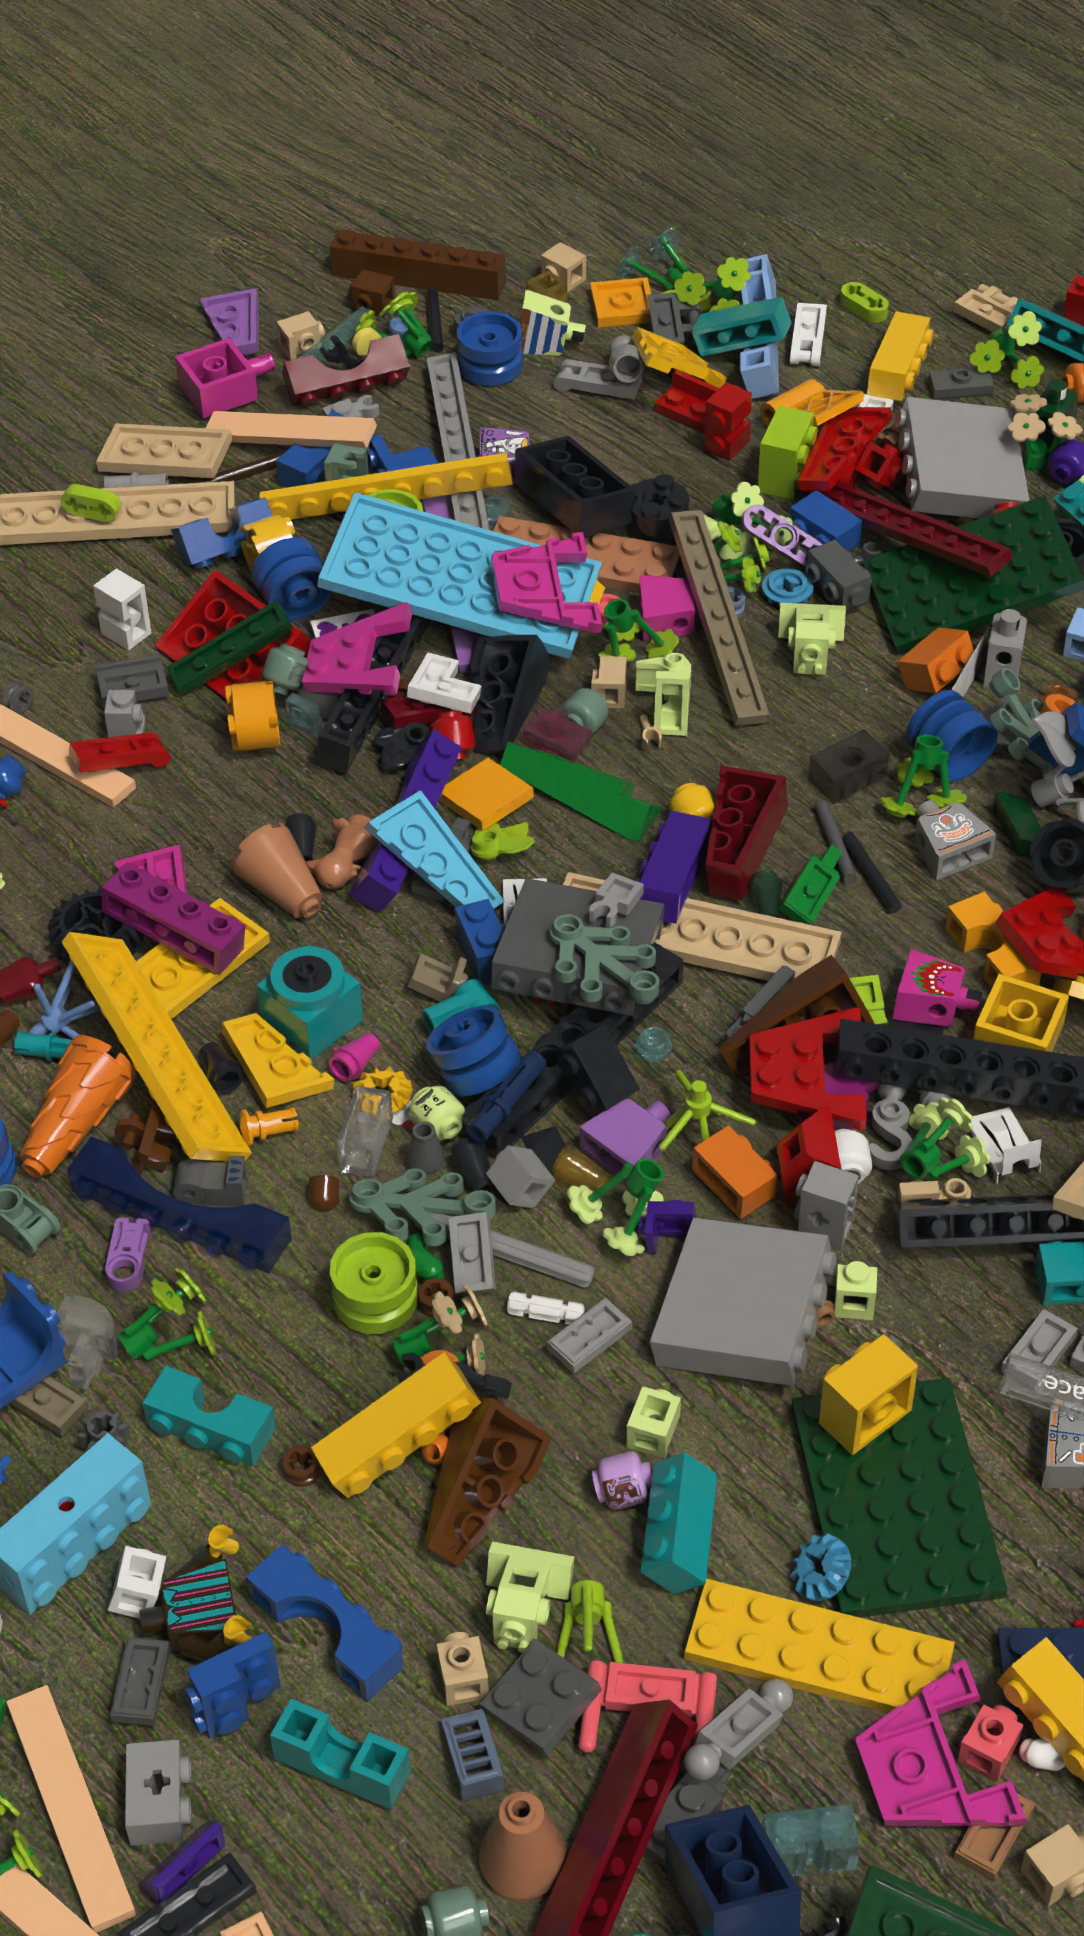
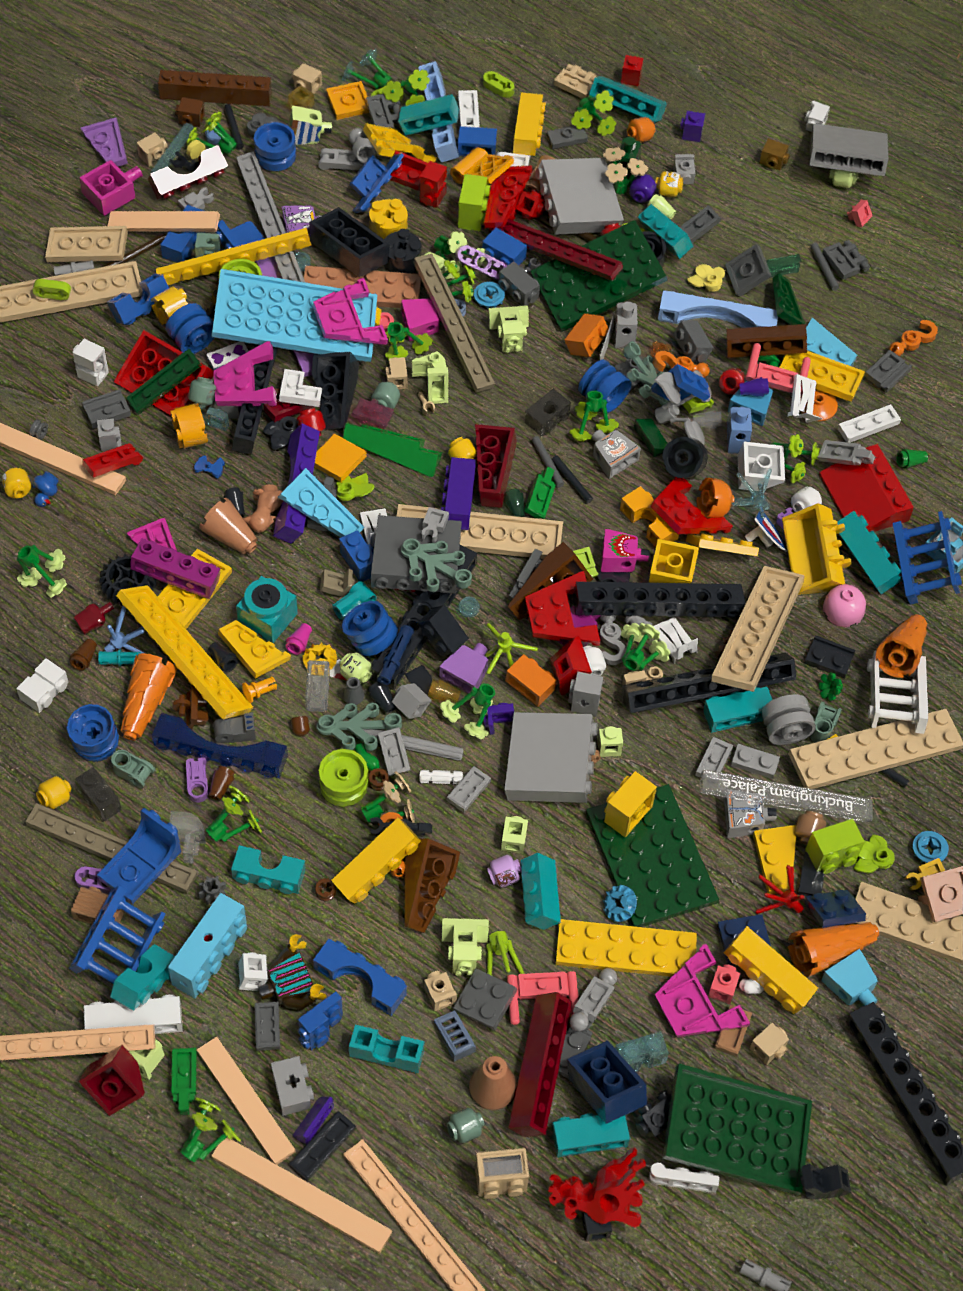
camera: 15 degrees left, 10 degrees up
(167, 1255) = (220, 782): none -> reddish brown cone
(283, 788) = (215, 469): none -> blue piece
(629, 403) = (371, 178): none -> blue bracket
(645, 457) = (387, 217): none -> yellow brick
(803, 365) = (476, 137): none -> blue brick

